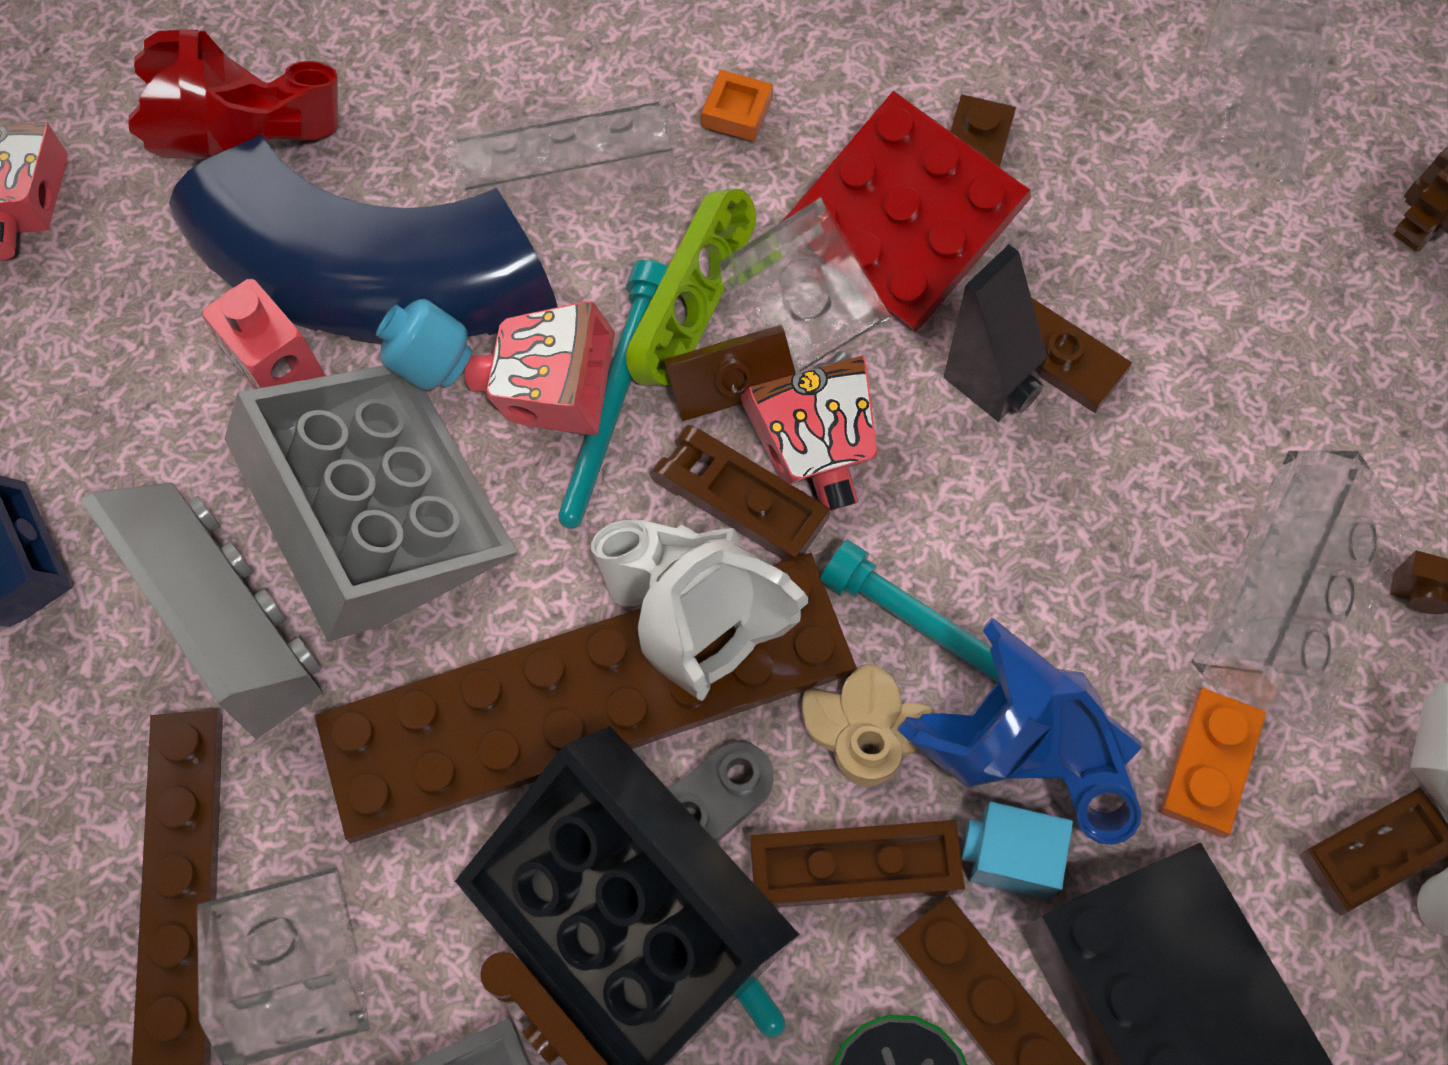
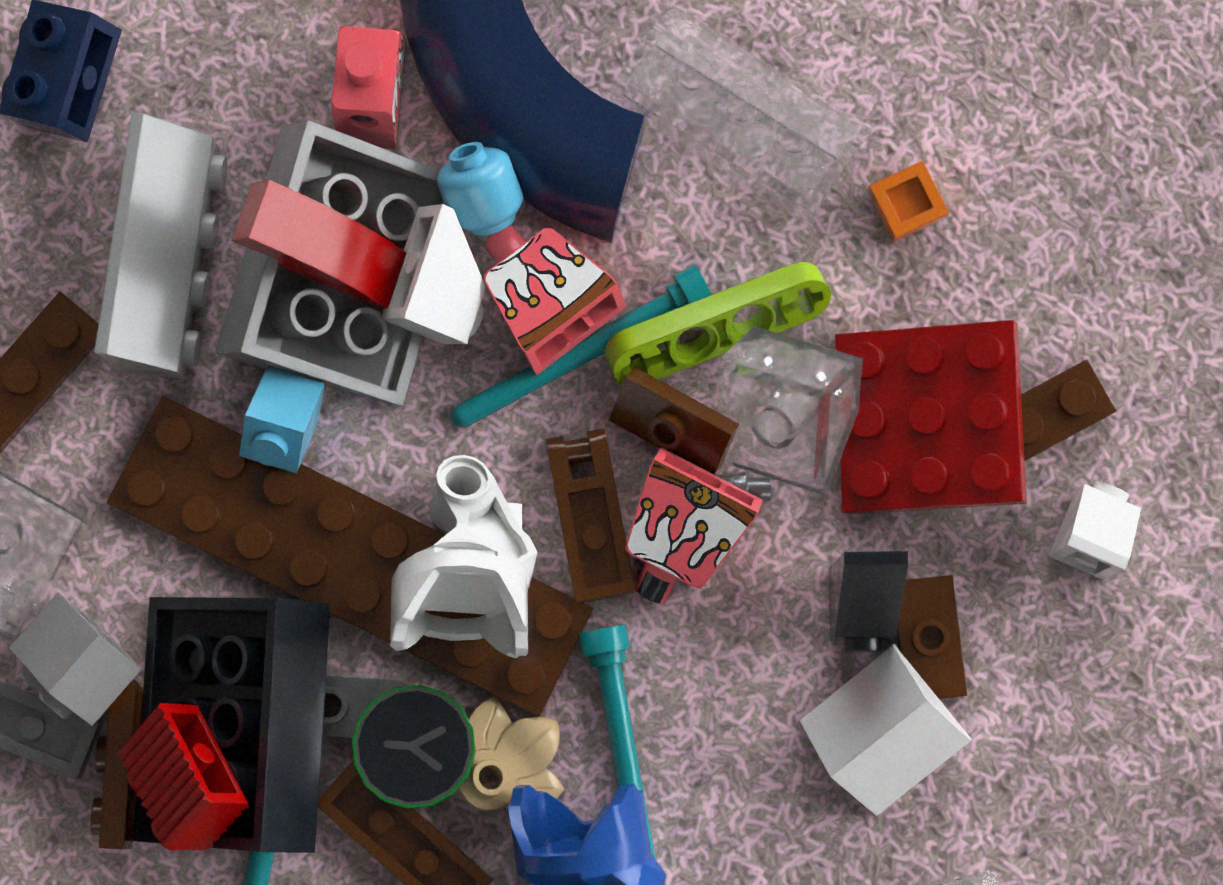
camera: 40 degrees right, 15 degrees up
(327, 463) = (319, 243): none -> slope
(431, 636) = (281, 419): none -> medium azure brick
(439, 982) = (72, 661): none -> light grey brick
(454, 432) = (438, 282): none -> white slope
(630, 980) = (182, 778): none -> red brick
(789, 776) = (414, 746): none -> black tile
(1097, 179) = (1097, 531): none -> white slope
(1106, 433) = (883, 731): none -> white slope

